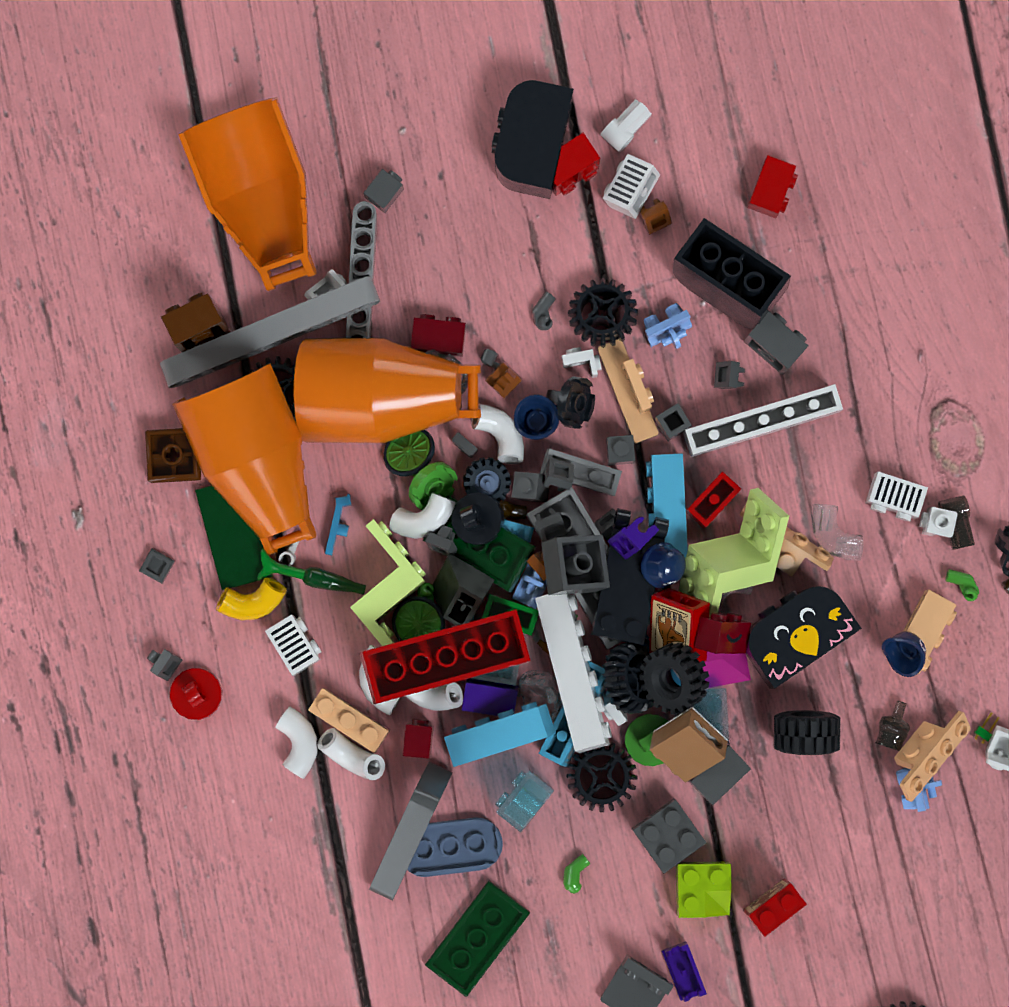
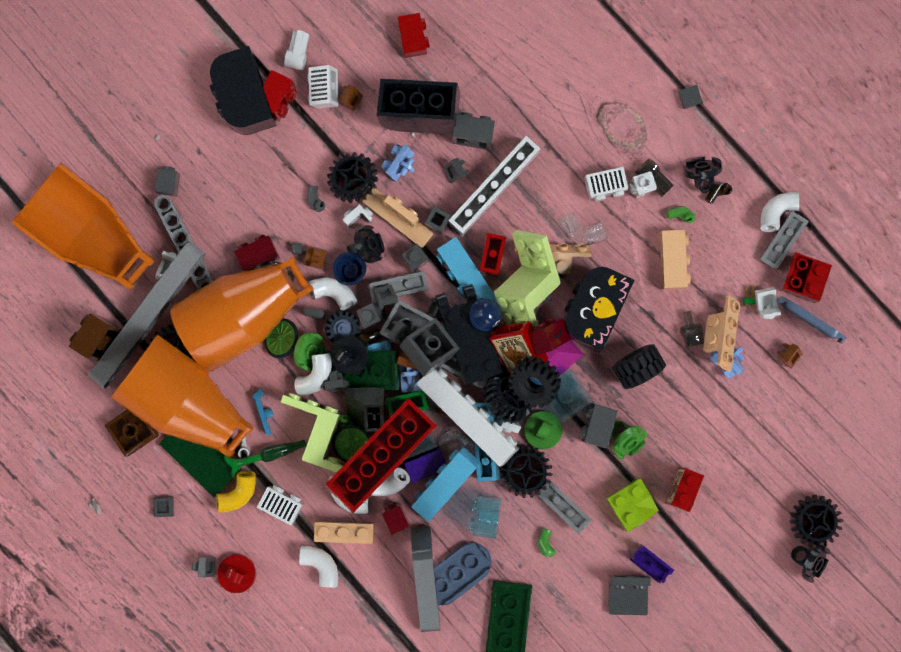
camera: 30 degrees left, 0 degrees up
(350, 755) = (359, 553): white cylinder -> none
(622, 845) = (564, 507): none -> light grey hinge
(630, 539) = (455, 310): dark purple hinge -> none
(669, 835) = (590, 484): dark grey brick -> none
(688, 744) = (569, 419): medium nougat piece -> none
(742, 813) = (629, 441): none -> bright green tile
(905, 653) = (671, 279): dark blue helmet -> none
(993, 827) = (791, 356): none -> dark orange tile

